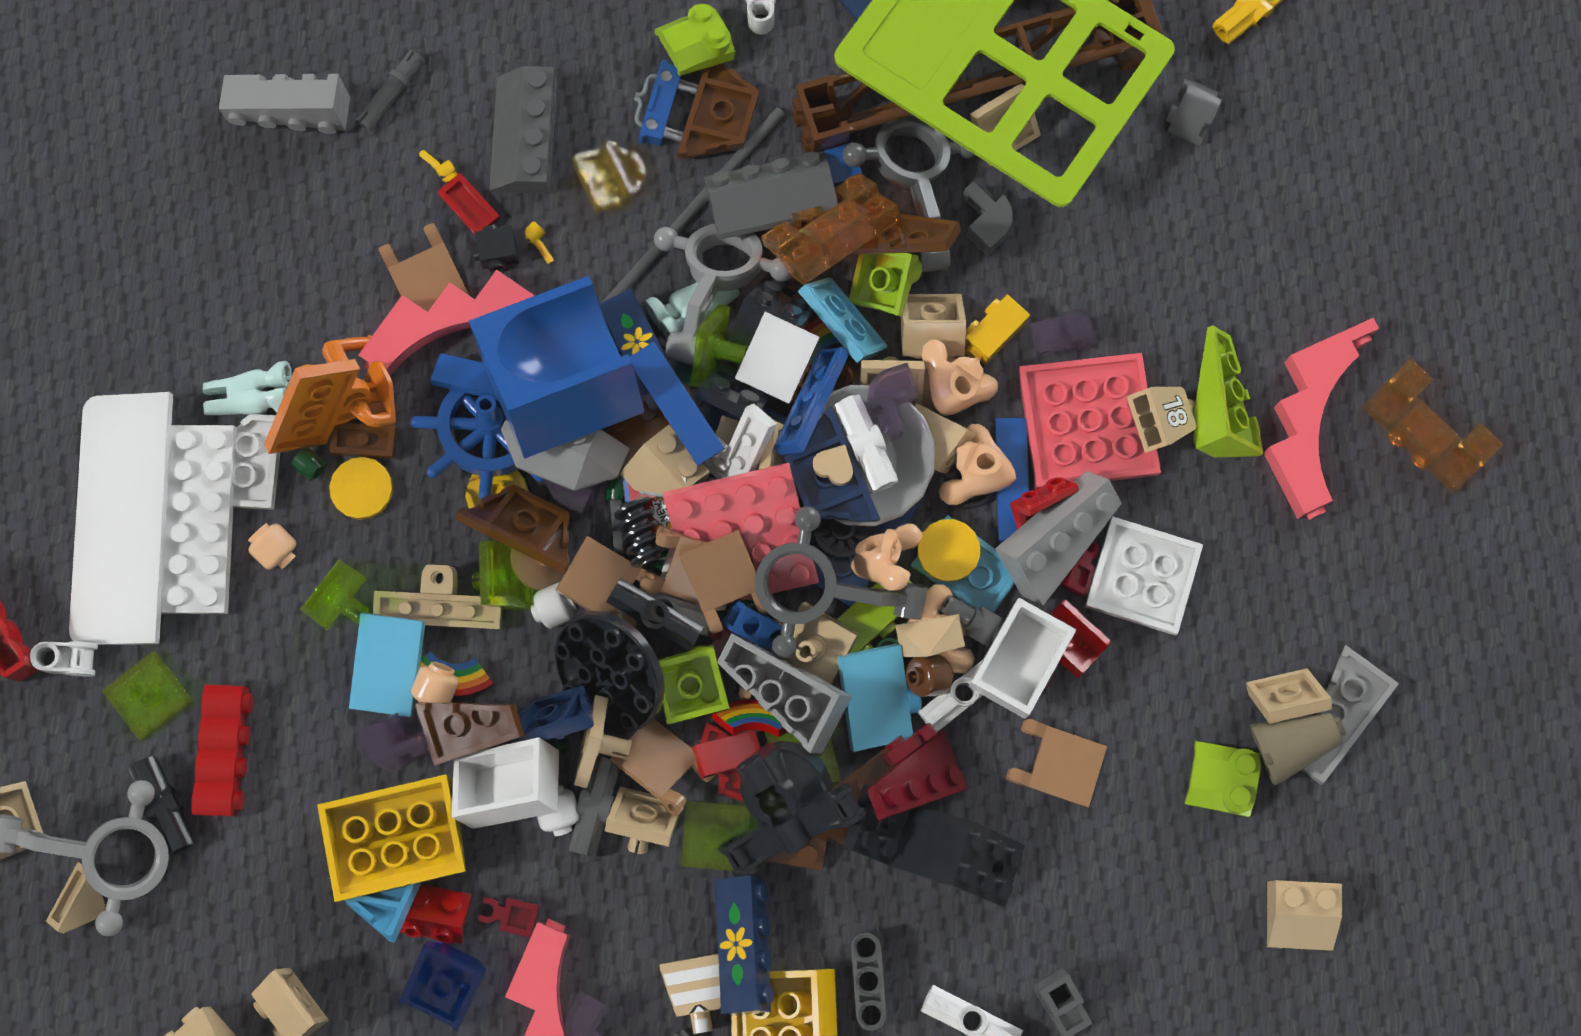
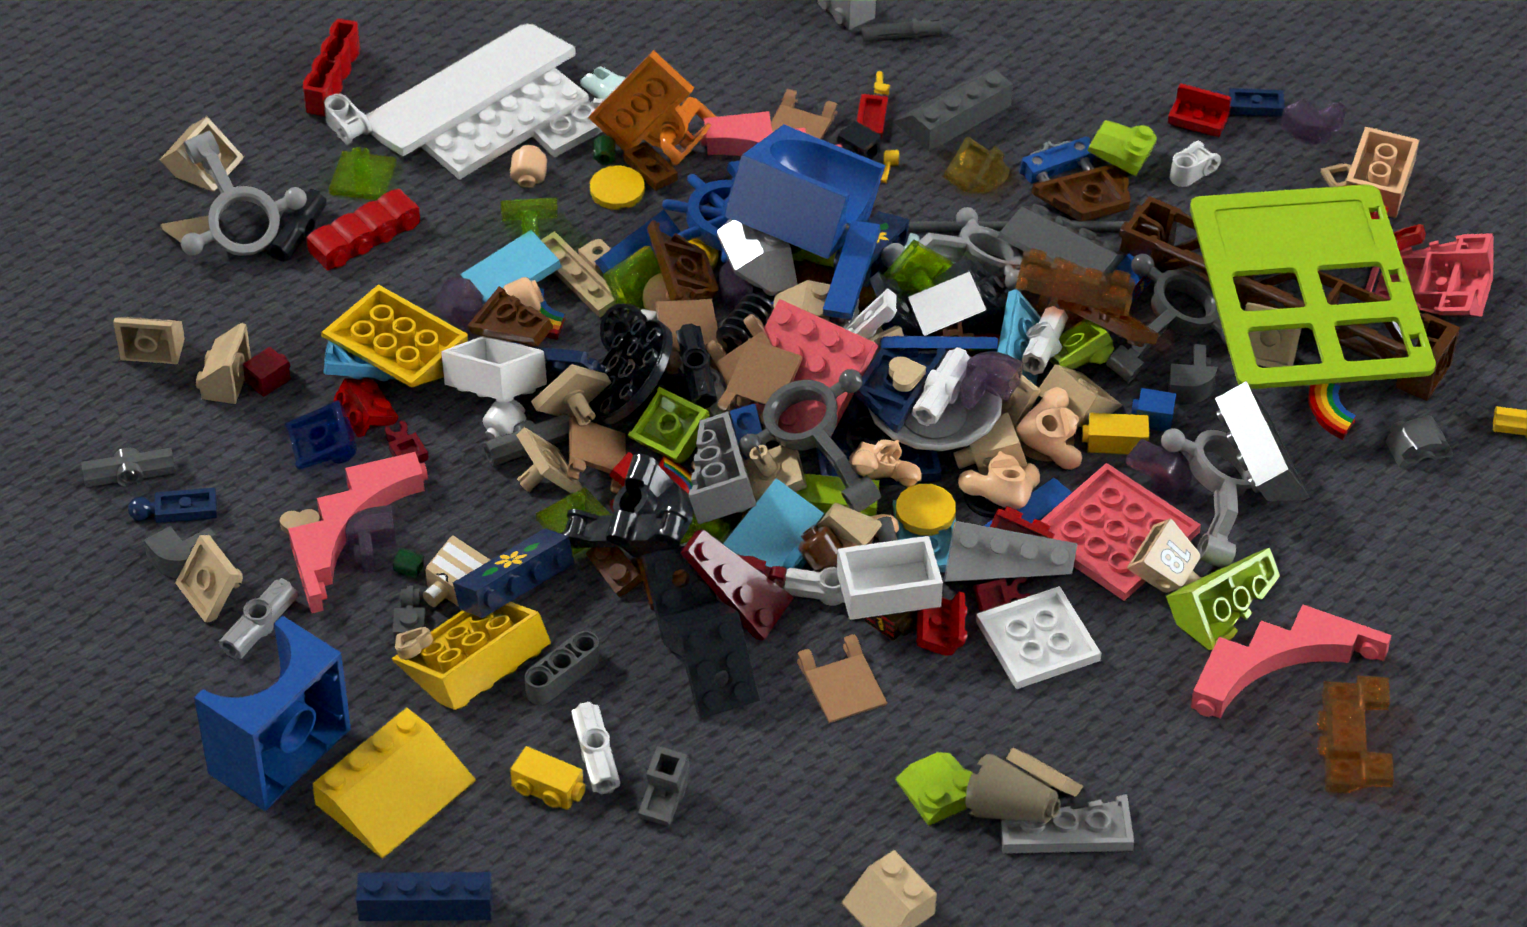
camera: 50 degrees right, 30 degrees down
(322, 969) = (267, 371): none -> dark red brick
(458, 539) = (635, 242): none -> blue tile
(543, 630) = (621, 324): none -> black wheel
(645, 1016) = (408, 563): none -> dark green hose
(870, 314) = (1044, 340): none -> white piece
(996, 278) = (1158, 407): none -> blue brick
(1121, 150) = (1328, 410): none -> tile
(1122, 244) = (1259, 445): none -> slope
(1174, 363) = (1214, 544): none -> light grey piece

